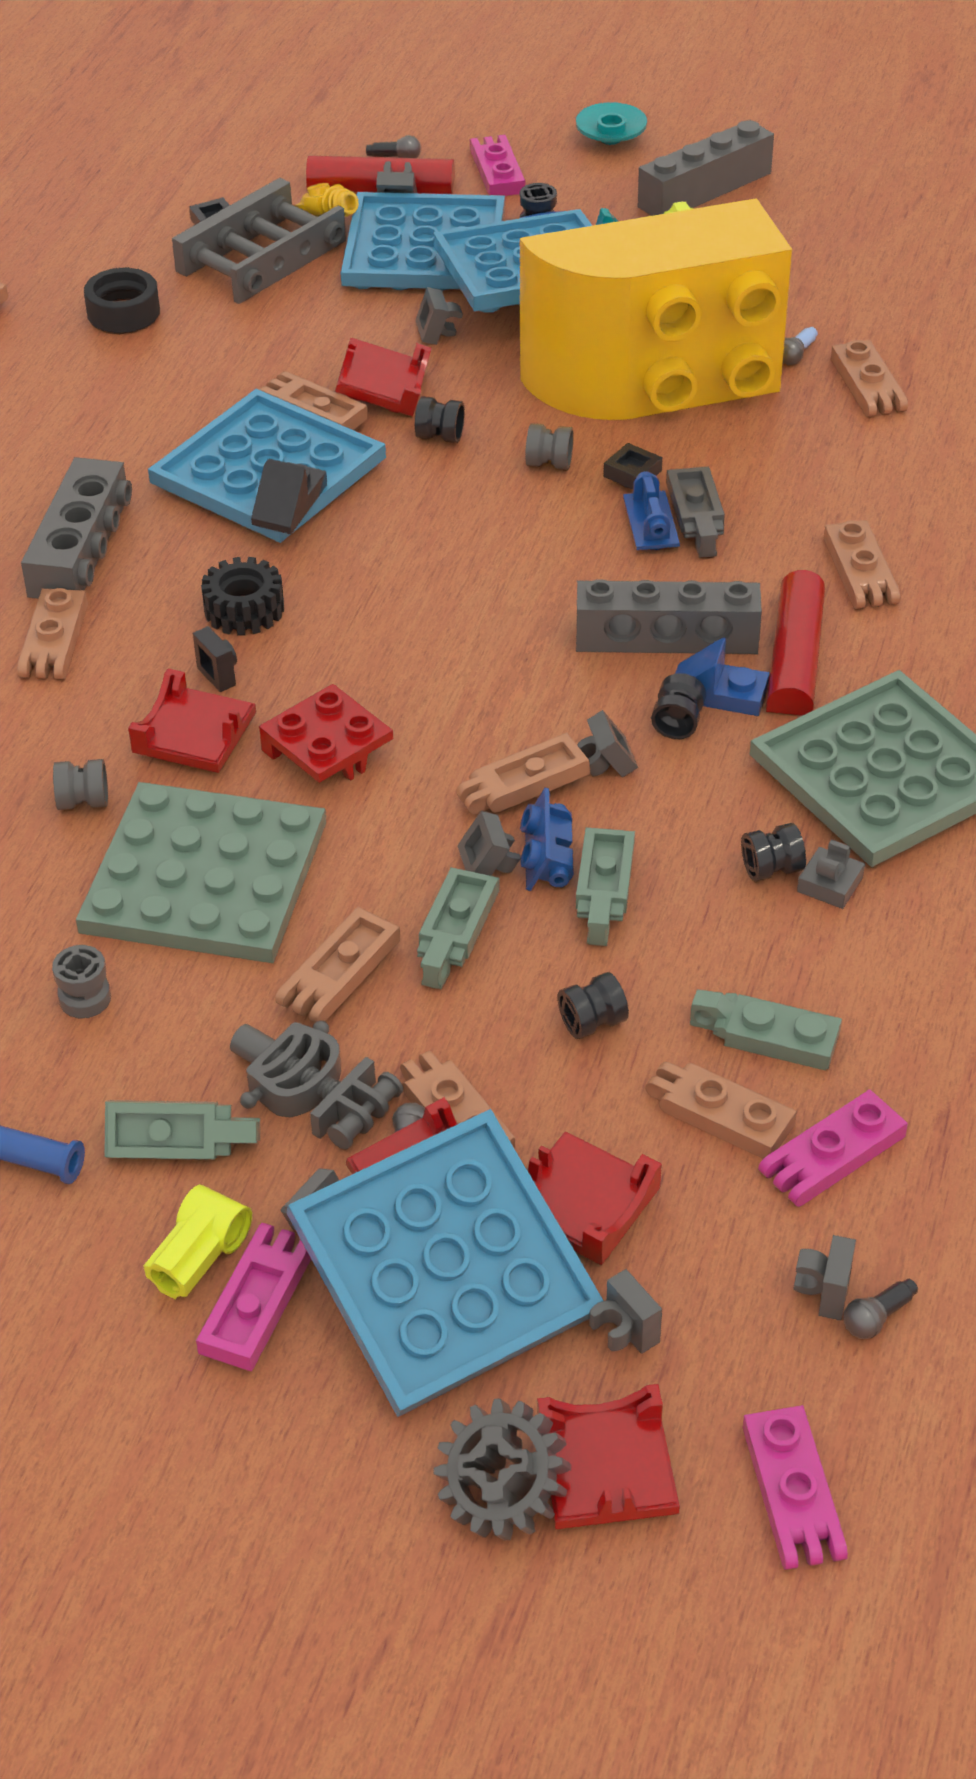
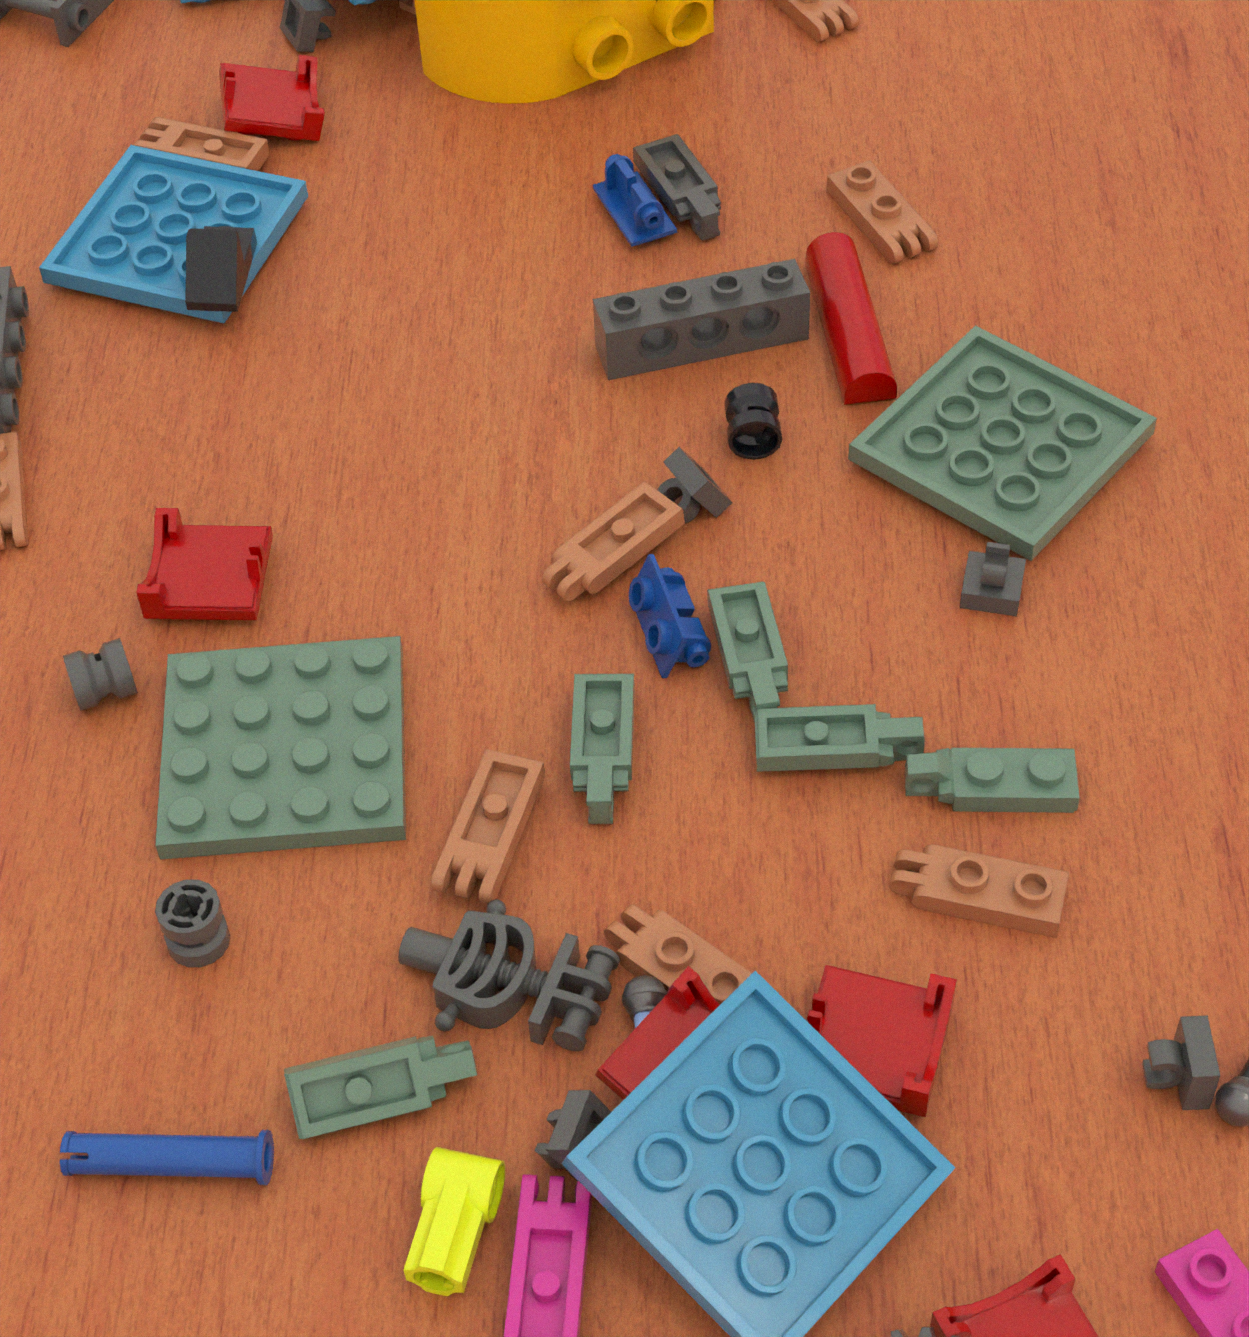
camera: 15 degrees left, 5 degrees up
(215, 658) = (203, 481): black plate -> none
(242, 596) = (211, 417): black tyre -> none
(325, 734) = (367, 545): red piece -> none
(439, 419) = (355, 139): black wheel -> none
(487, 846) = (604, 639): dark grey tile -> none
(546, 446) = (491, 146): dark grey wheel -> none
(593, 1005) = (794, 805): black wheel -> none
(629, 462) = (589, 150): black plate -> none
(632, 1311) = (988, 1169): dark grey tile -> none
(644, 963) = (833, 737): none -> sand green hinge
(726, 685) = (798, 383): blue slope -> none
(773, 852) = (920, 571): black wheel -> none
(834, 1147) = (1124, 903): dark pink hinge -> none

